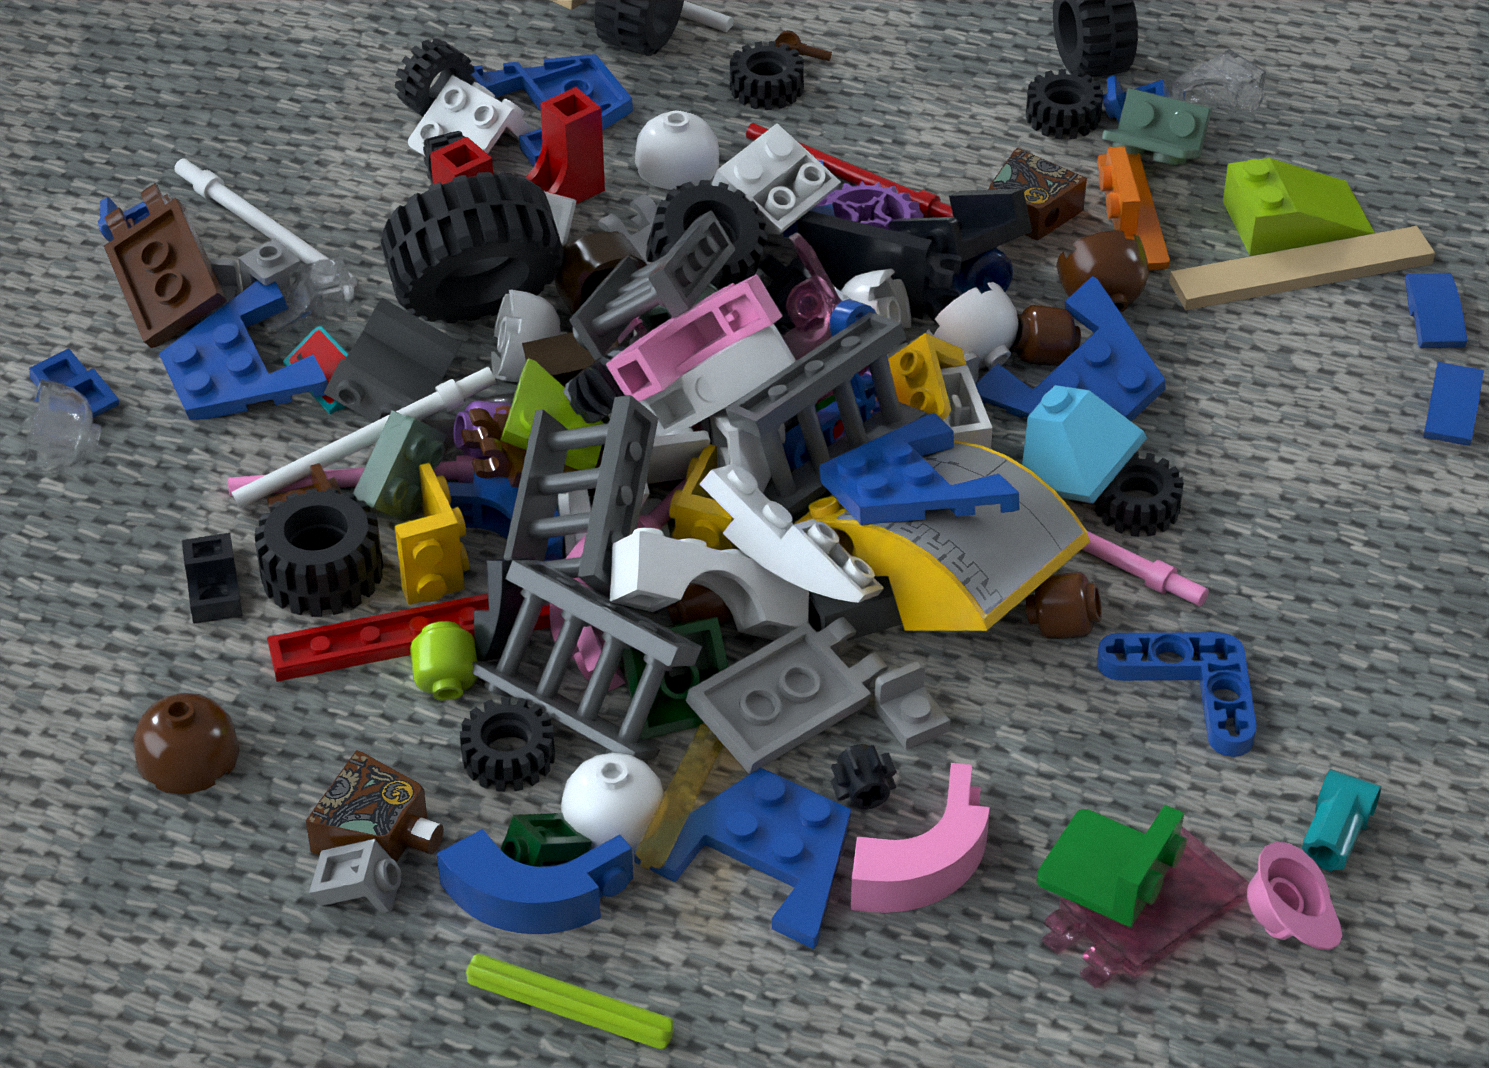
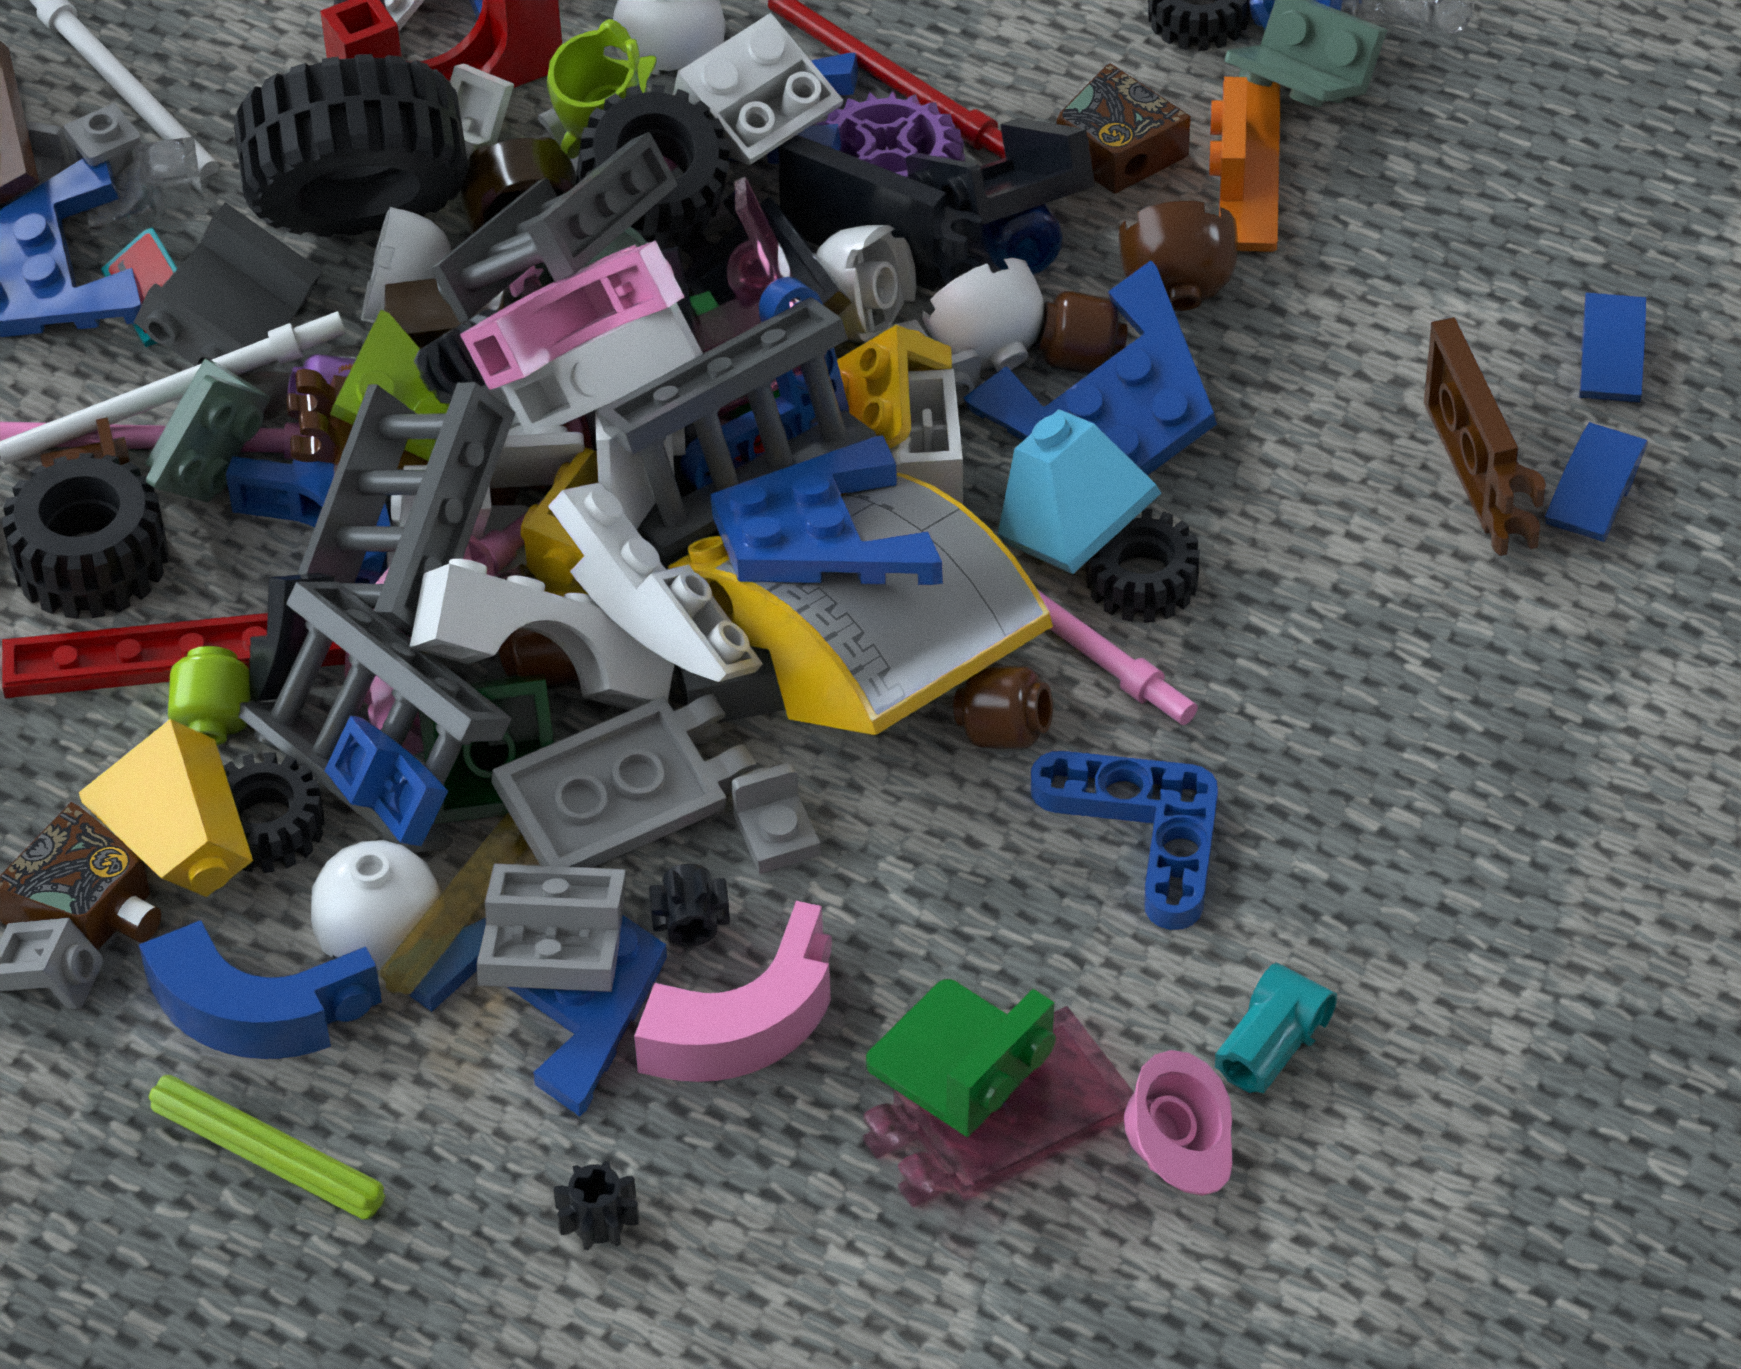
camera: 10 degrees right, 5 degrees up
(430, 546) = (215, 547): yellow bracket -> none
(441, 746) = (174, 808): none -> yellow slope
(542, 839) = (276, 940): dark green bracket -> none
(606, 705) = (388, 778): none -> blue slope
(641, 189) = (584, 77): none -> lime piece
(763, 804) = (552, 927): none -> light grey slope
(850, 1014) = (596, 1204): none -> black gear
(1289, 206) = (1465, 180): lime slope -> none
(1301, 267) = (1454, 267): tan tile -> none
(1367, 378) = (1478, 439): none -> reddish brown tile

